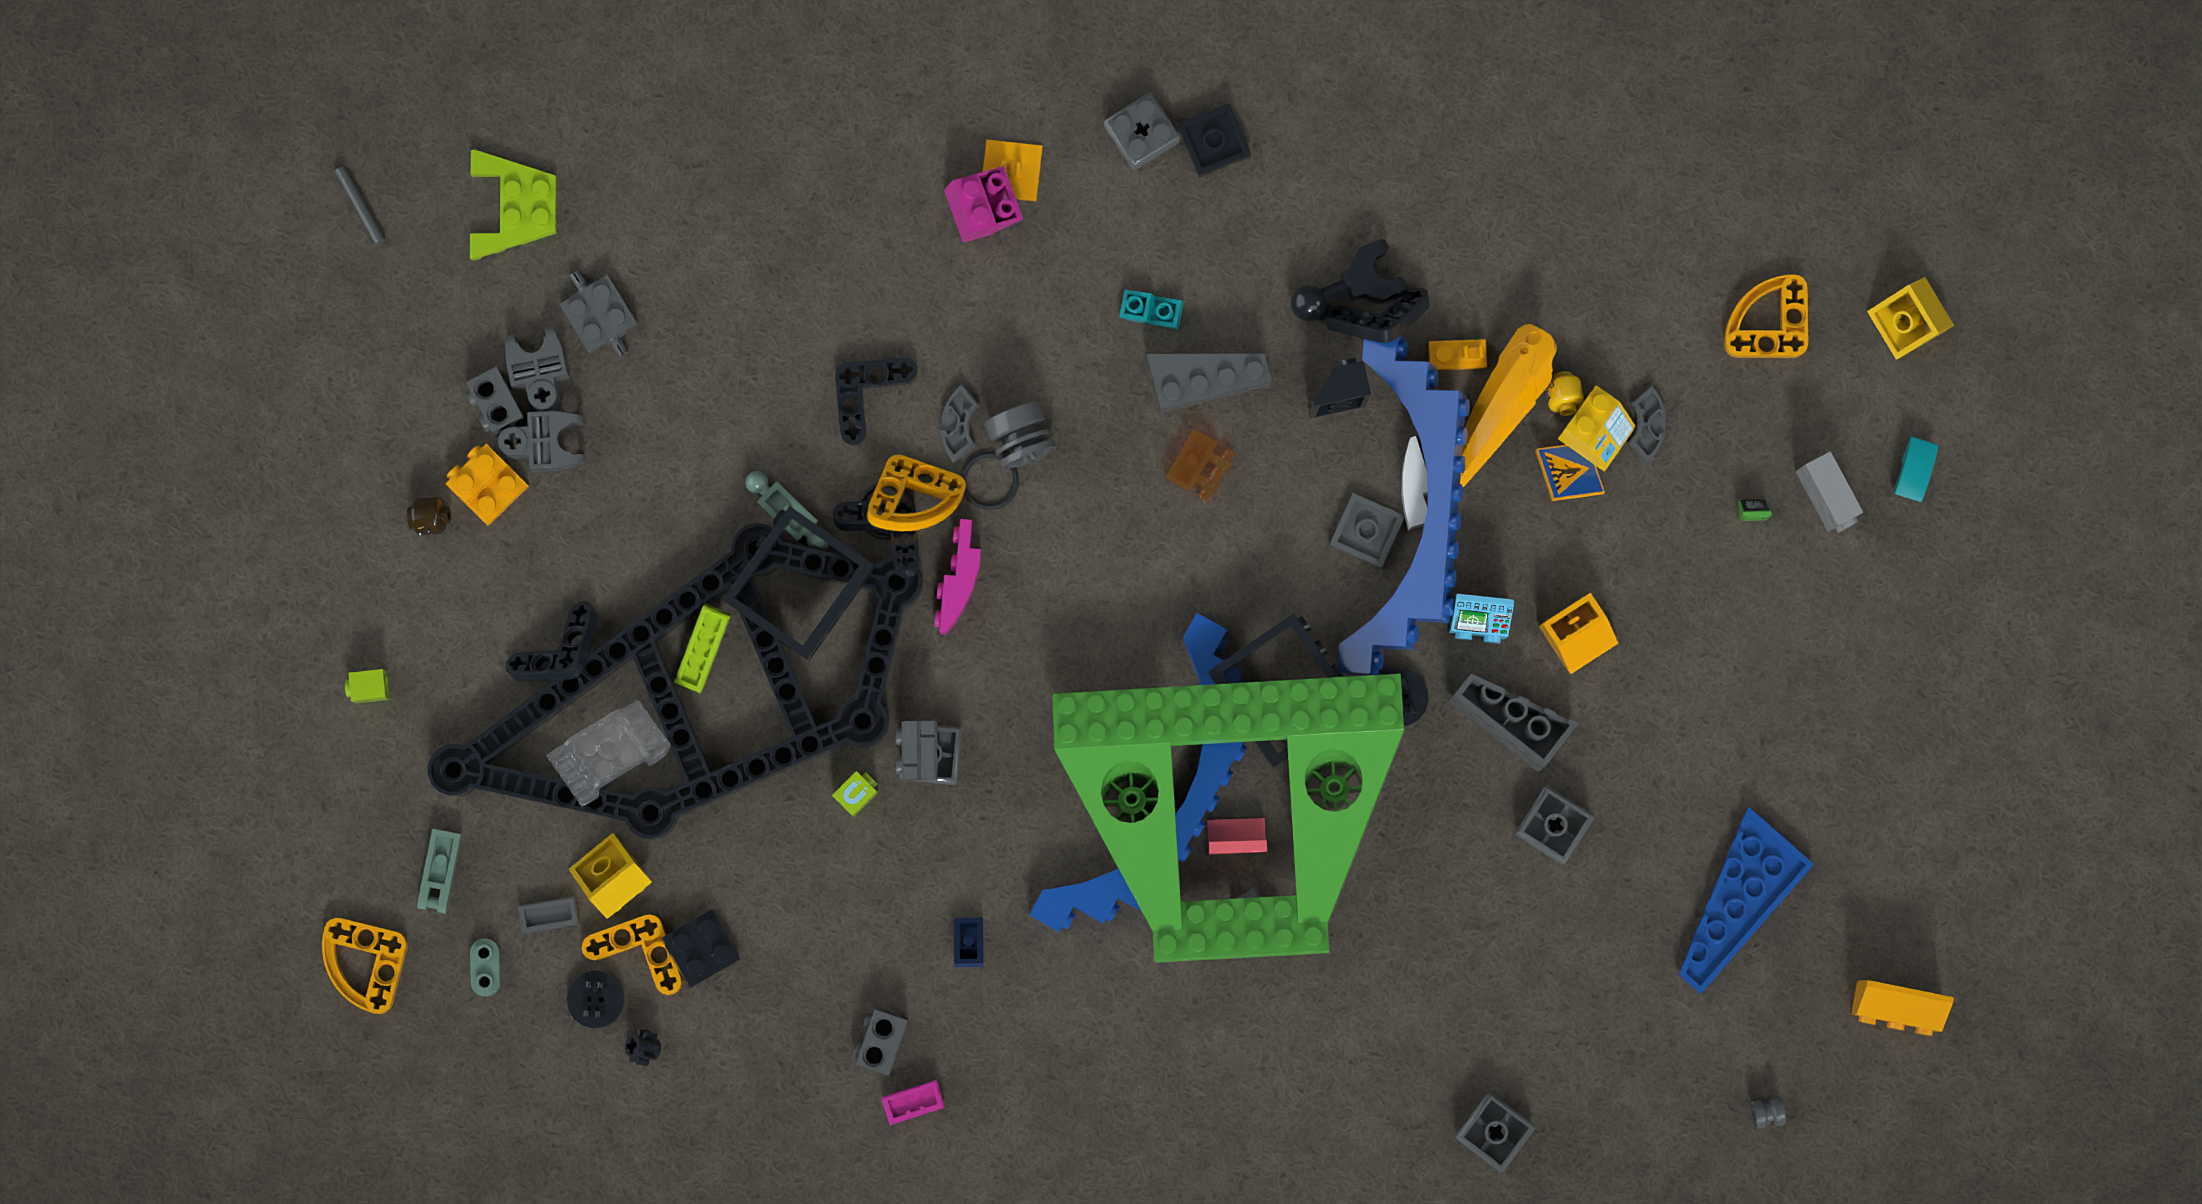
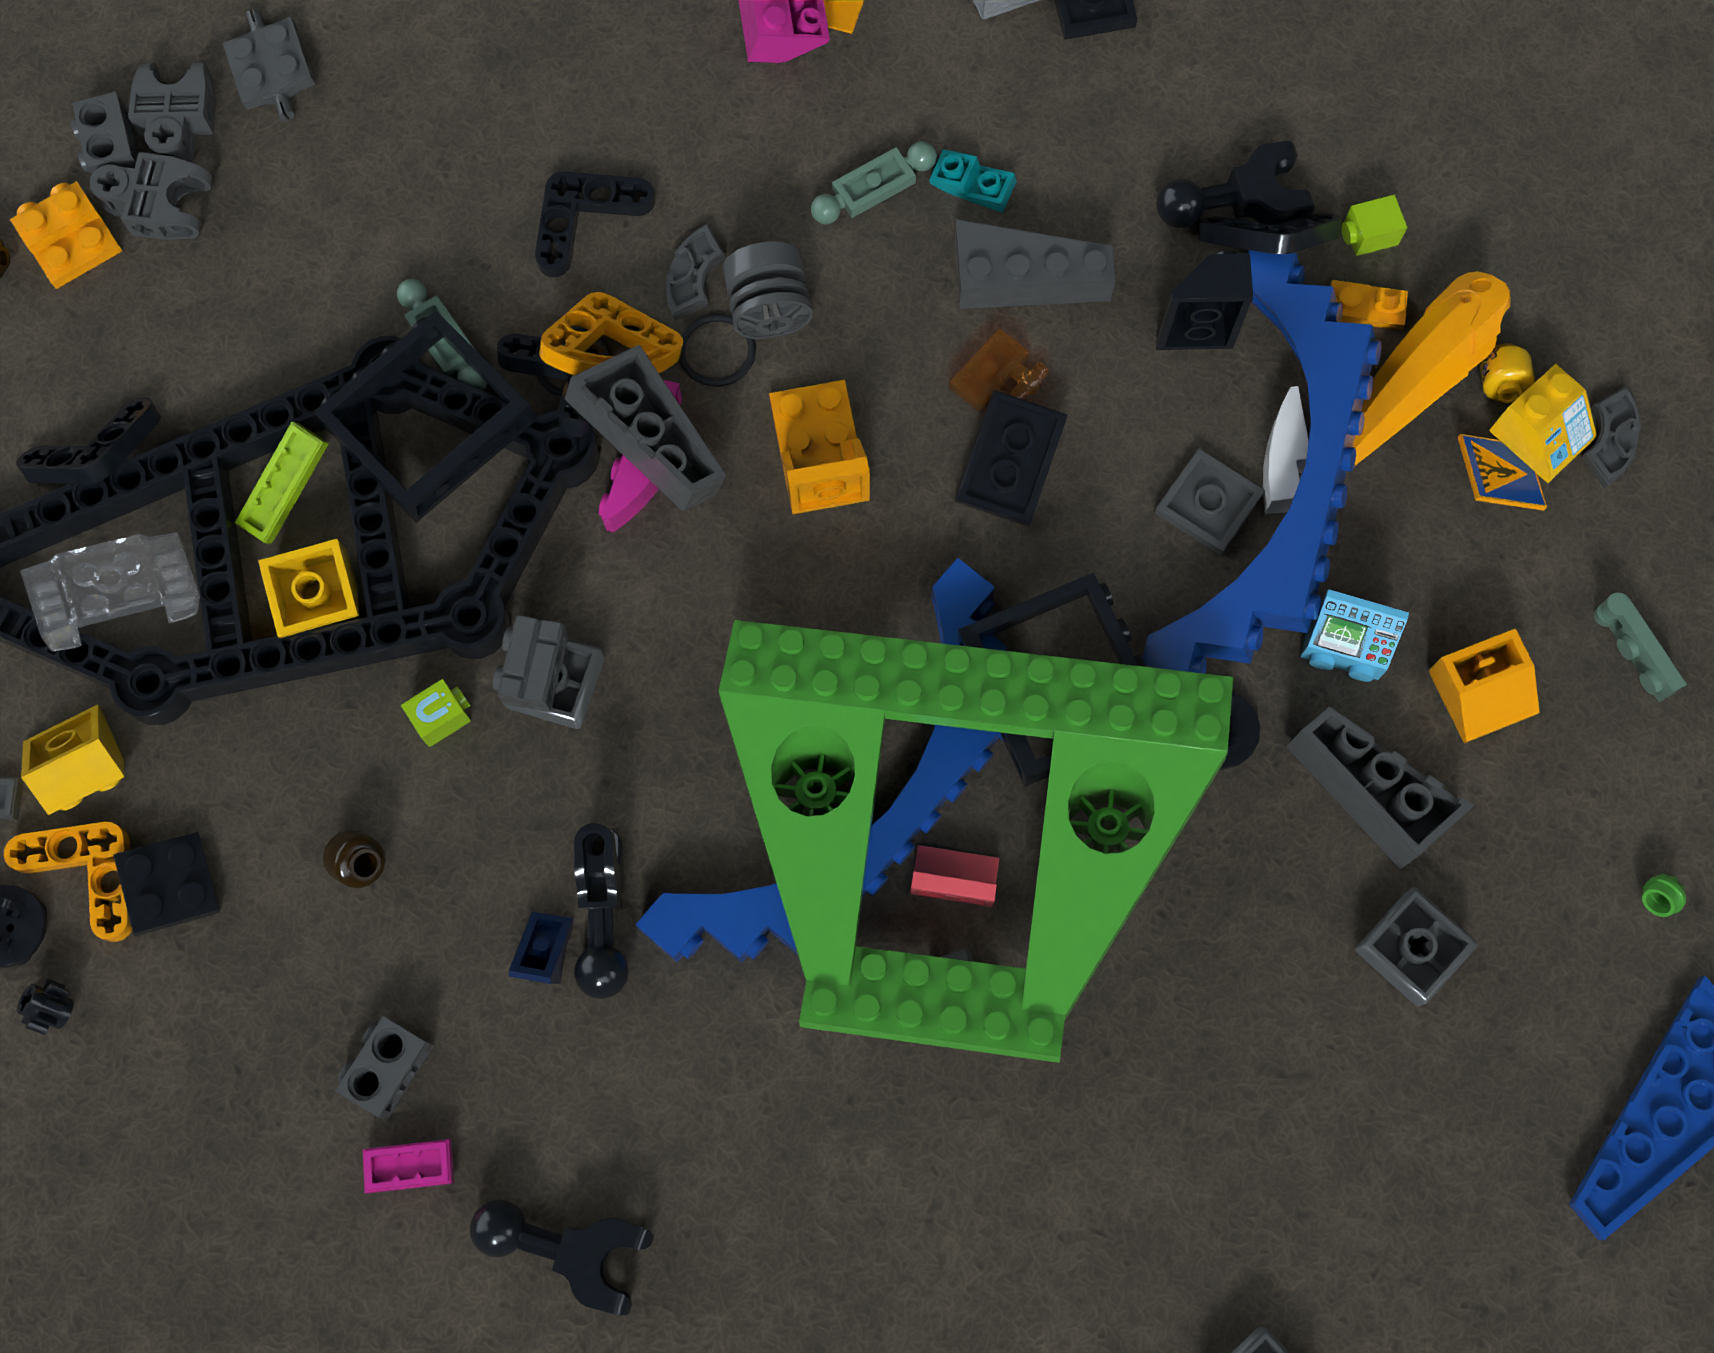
camera: 15 degrees right, 10 degrees down
(747, 725) = (310, 587): none -> yellow slope
(826, 907) = (354, 858): none -> dark brown head
(962, 565) = (647, 425): none -> dark grey wedge
(1011, 948) = (599, 882): none -> black piece
(1039, 1135) = (577, 1254): none -> black piece
(1078, 327) = (873, 182): none -> sand green plate
(1080, 544) = (820, 447): none -> light orange bracket
(1220, 527) = (1011, 458): none -> black tile
(1452, 293) = (1374, 225): none -> lime brick
(1679, 581) = (1640, 646): none -> sand green plate
(1716, 756) = (1663, 895): none -> bright green plate

